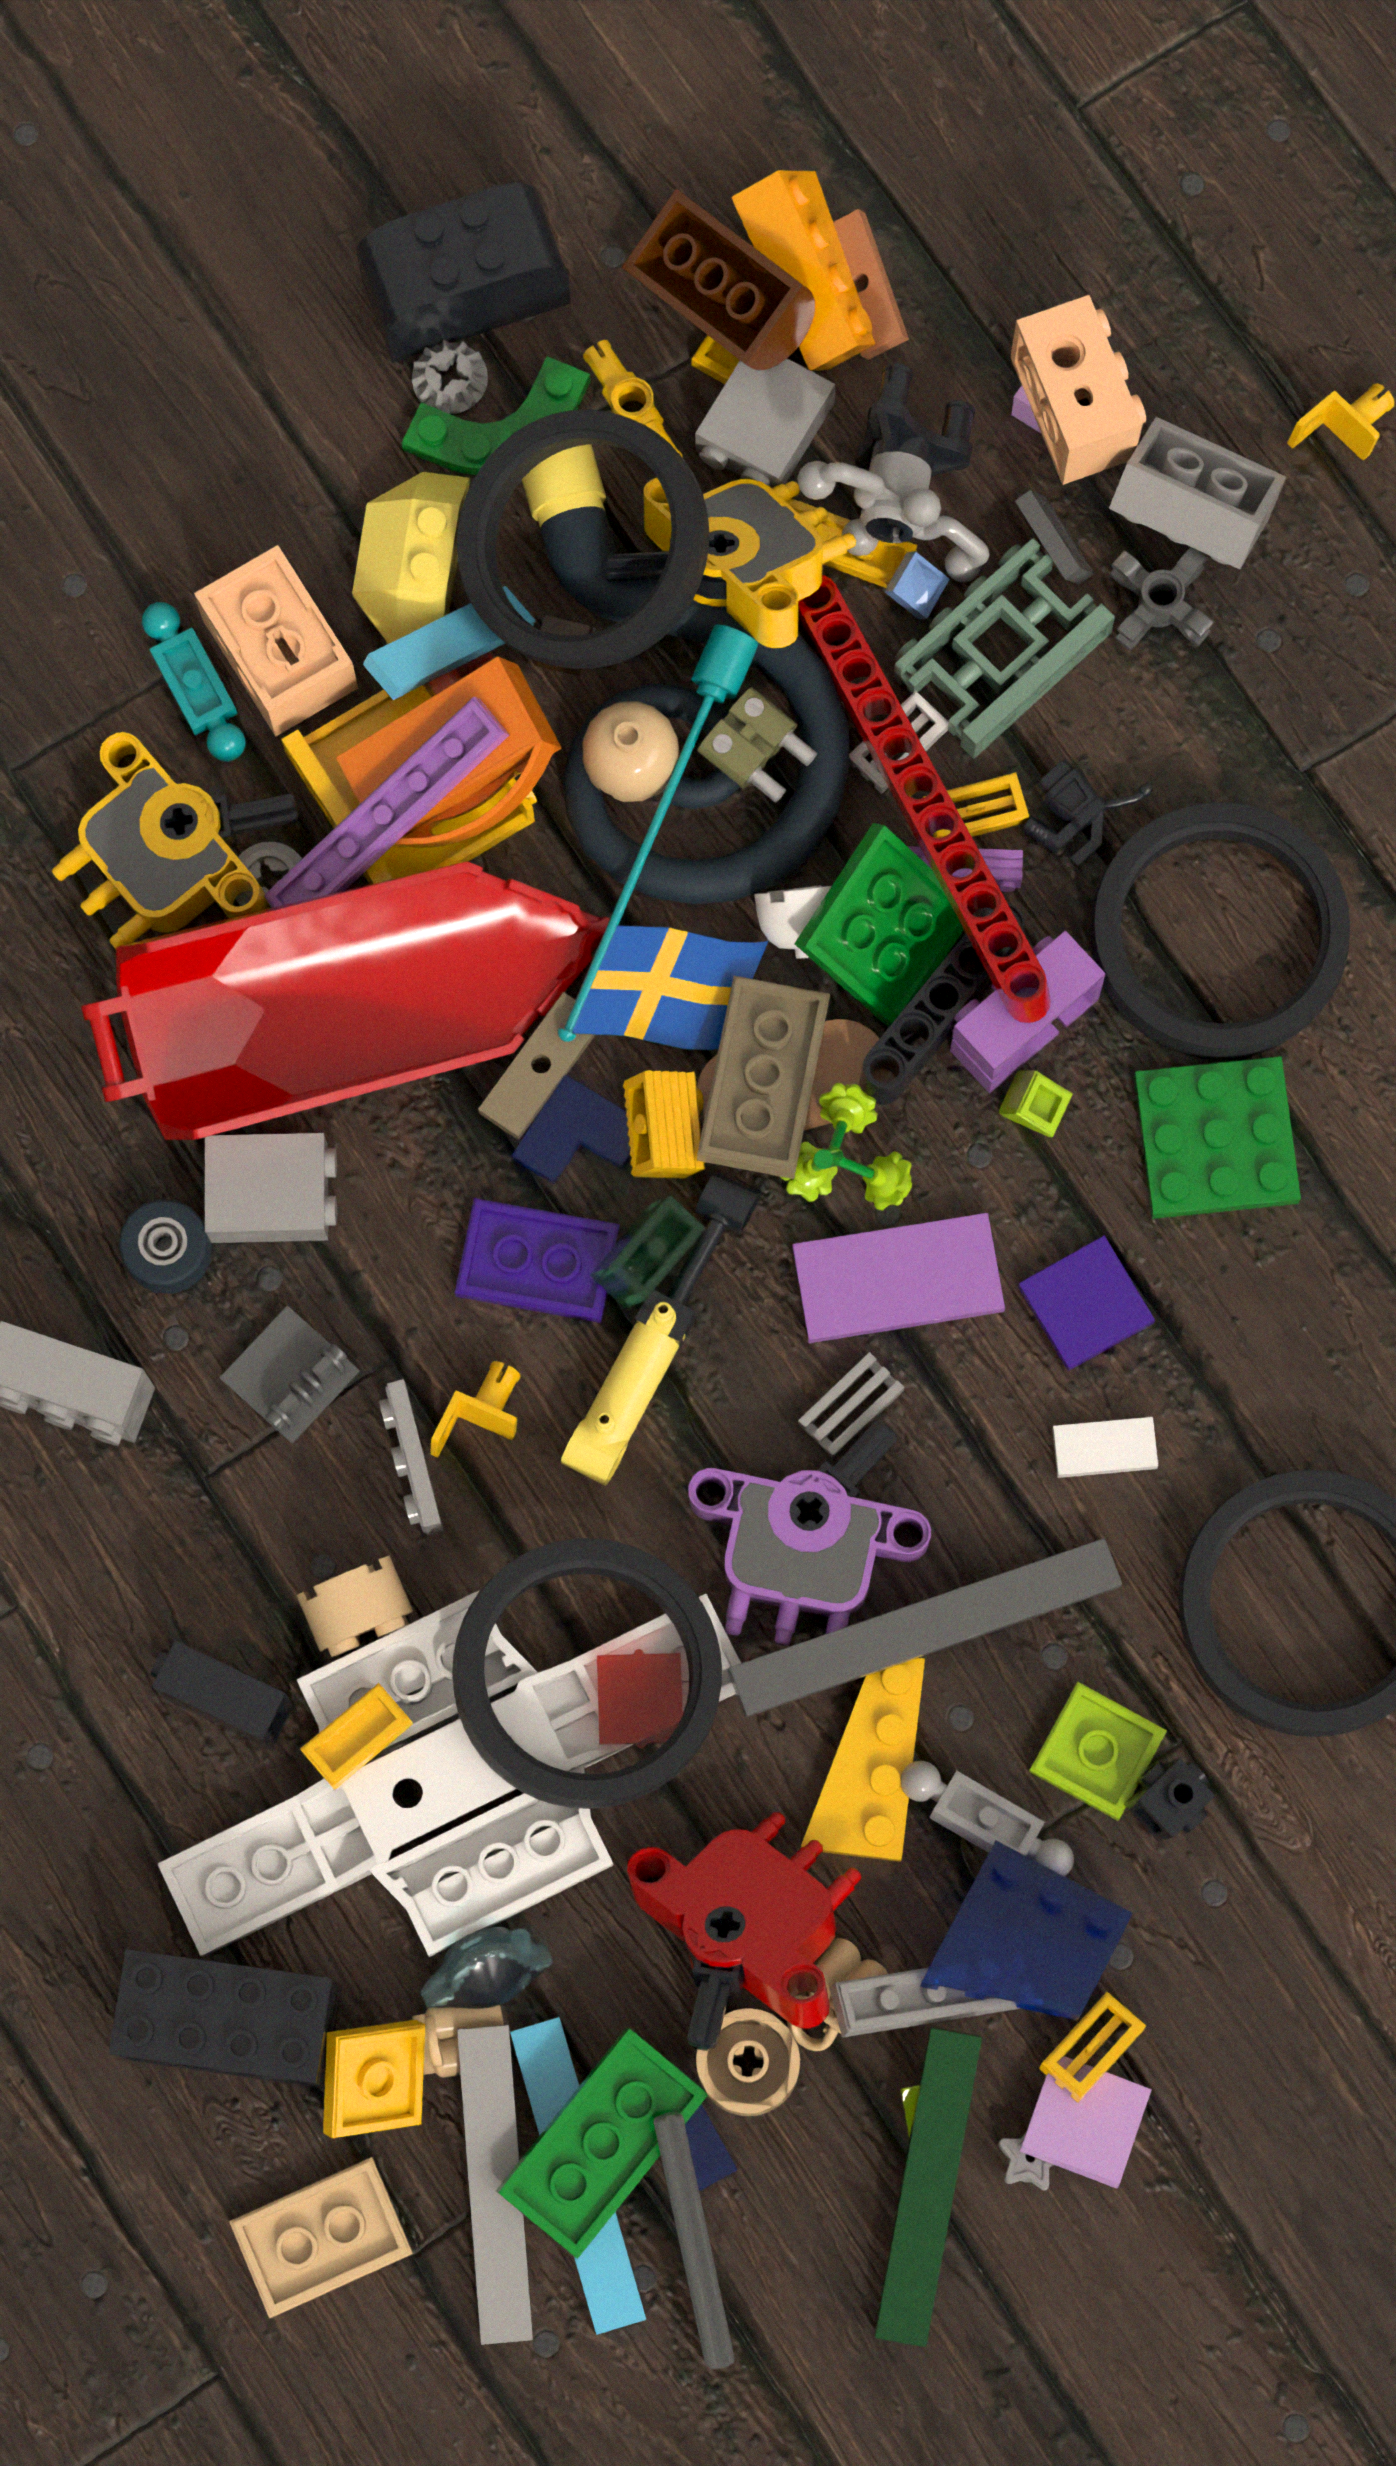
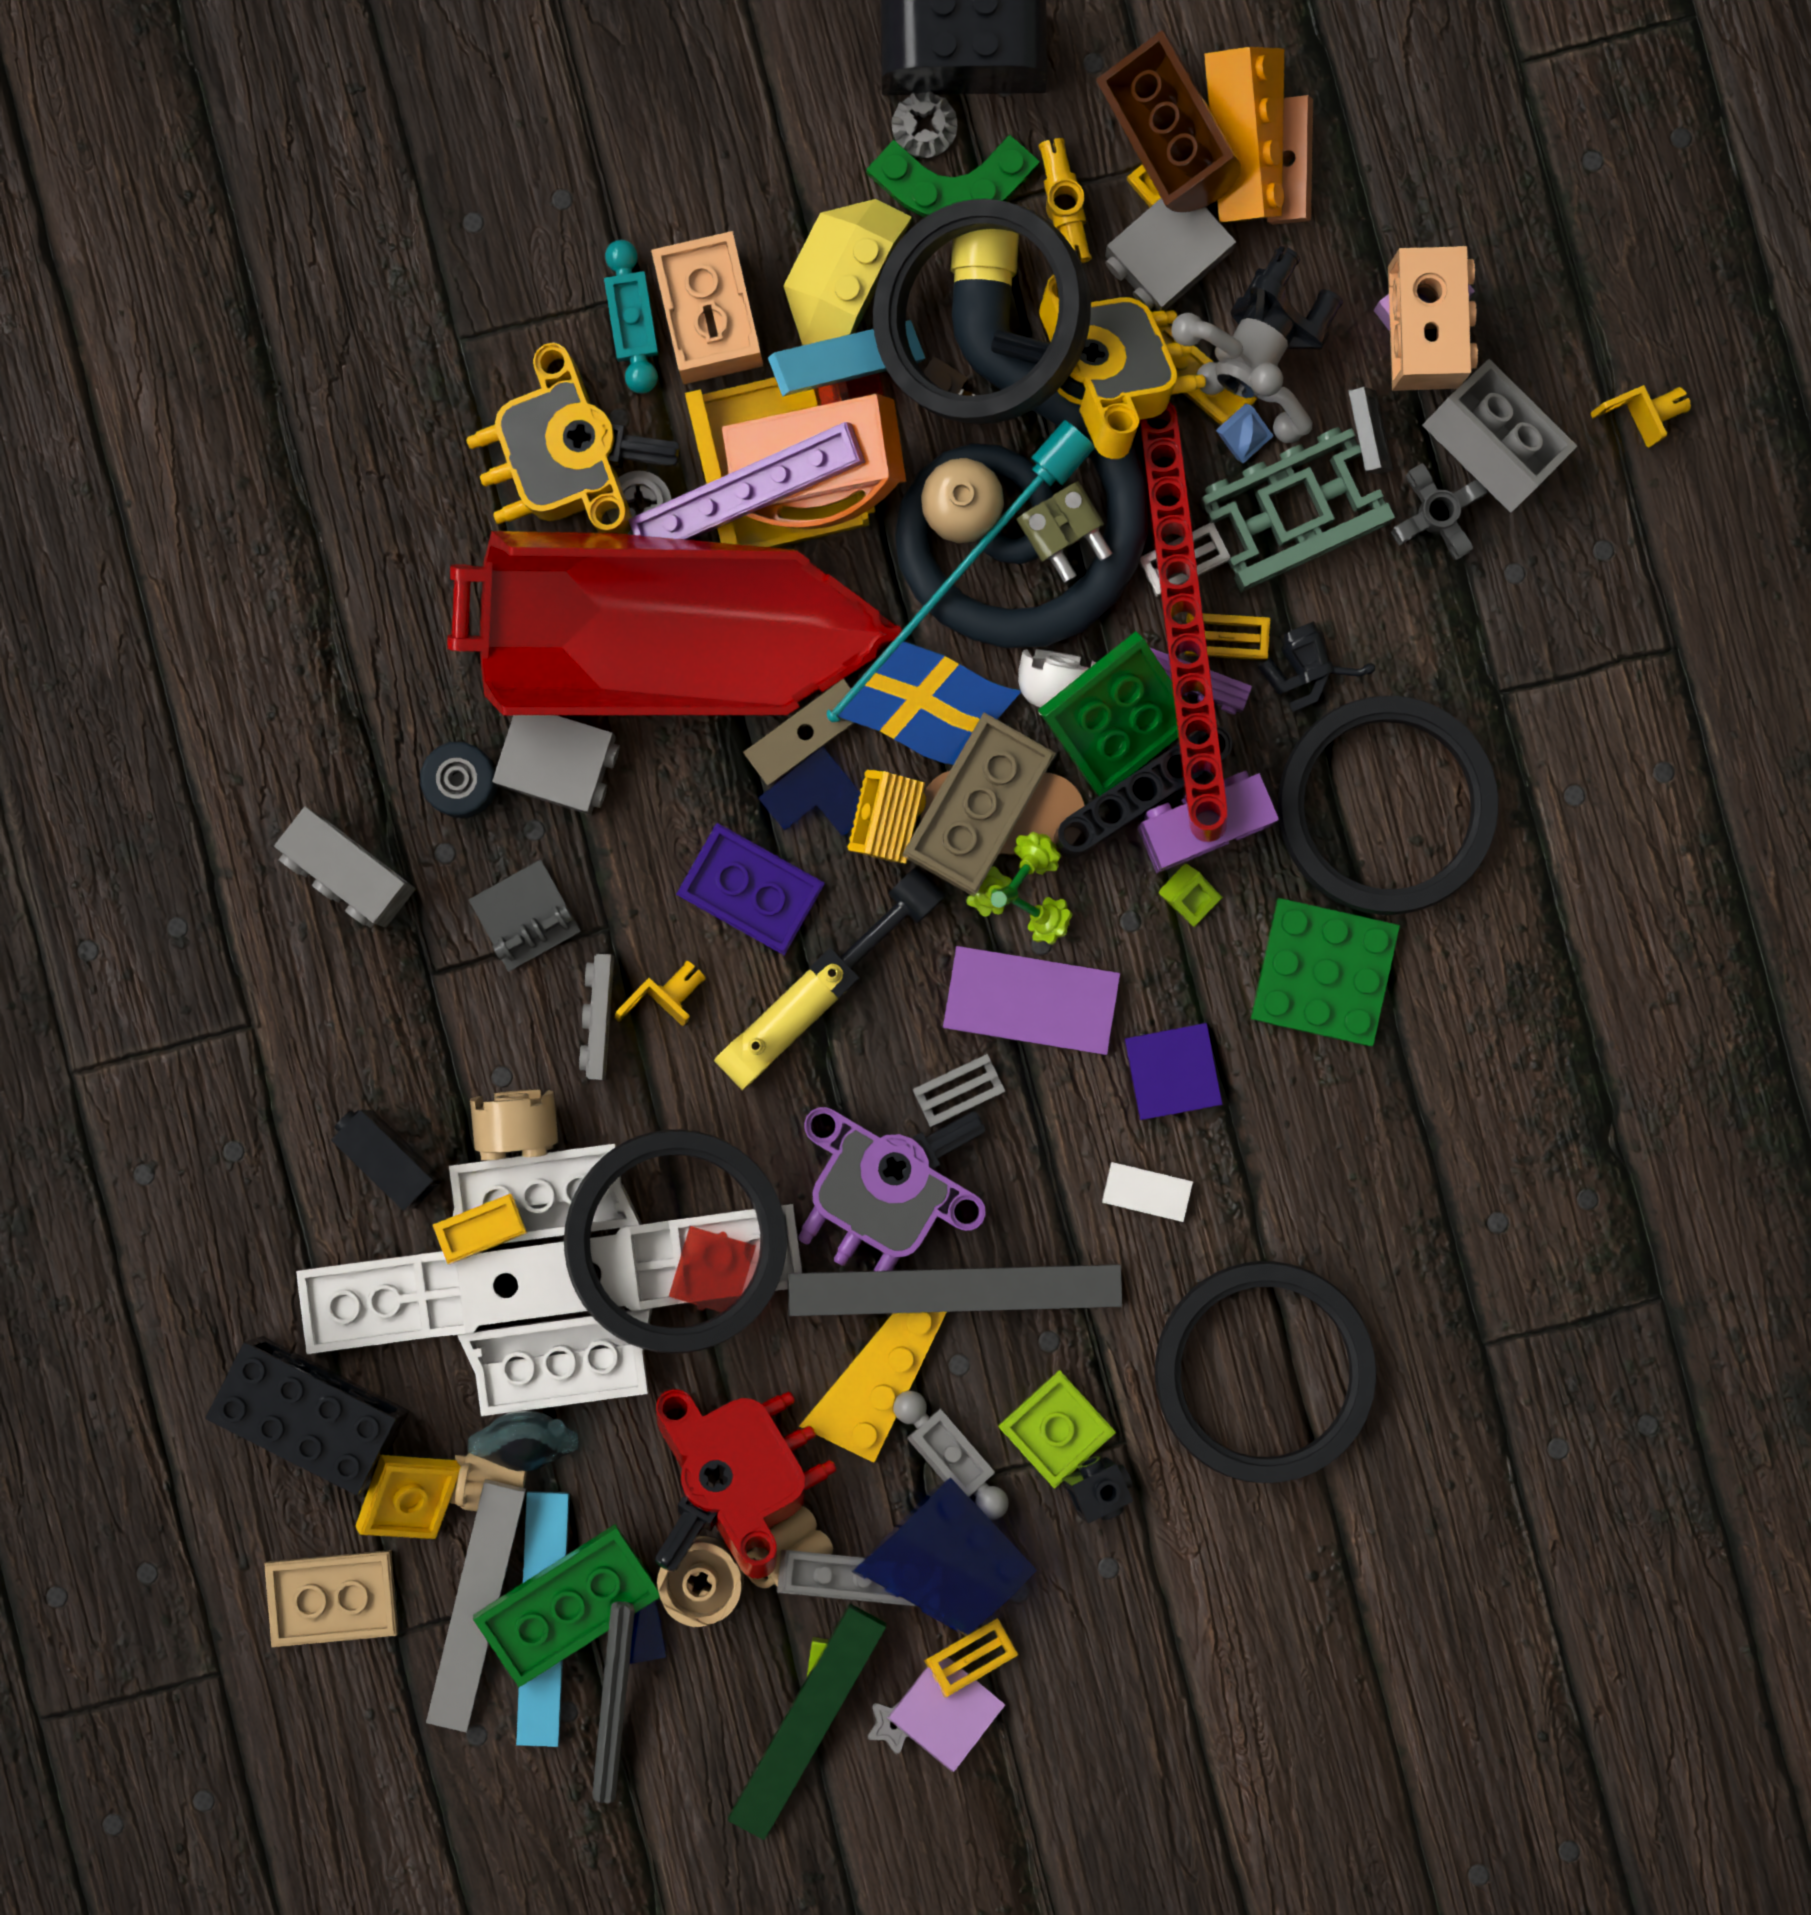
camera: 20 degrees right, 10 degrees up
(647, 1251) = (838, 916): clear green brick -> none

